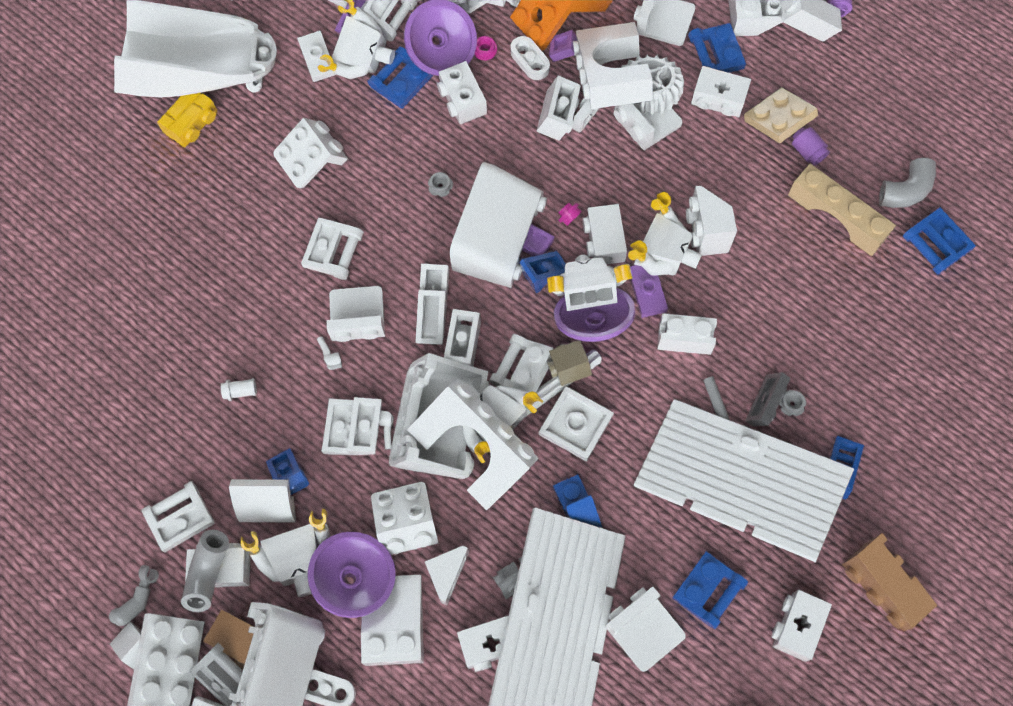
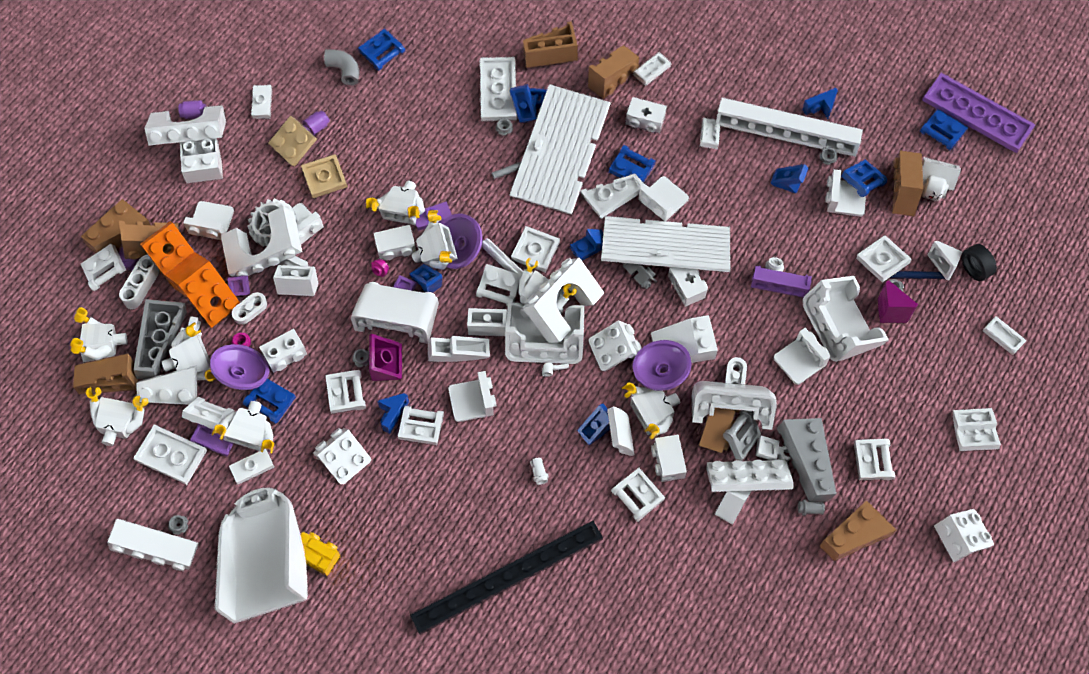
camera: 100 degrees left, 5 degrees down
(107, 338) = (506, 577): none -> black plate
(133, 607) = (702, 509): light grey arm -> none
(204, 571) = (677, 455): light grey cylinder -> none
(332, 360) = (509, 412): white hand -> none
(352, 426) = (557, 388): white slope -> none
(357, 216) = (394, 406): none -> blue slope
(395, 154) = (338, 391): none -> white plate
(431, 208) = (384, 359): none -> magenta slope
(446, 570) = (648, 314): white slope -> none
(569, 363) = (496, 252): dark tan brick -> none
(656, 549) = (609, 197): none -> white wing
(686, 334) = (465, 187): white brick -> none
(711, 222) = (382, 175): white slope -> none
(720, 91) = (274, 179): white brick -> none
(722, 153) = (324, 176): none -> tan plate
(723, 45) = (235, 181): blue plate -> none
(767, 400) = (504, 139): flat silver plate -> none
(828, 433) = (524, 103): none -> blue slope
(852, 83) = (261, 101): none -> white plate
(862, 401) = (496, 80): none -> white plate
(864, 224) = (352, 115): tan arch -> none
(895, 652) = (652, 68): none -> white plate
(936, 490) = (552, 47): none -> medium nougat wedge

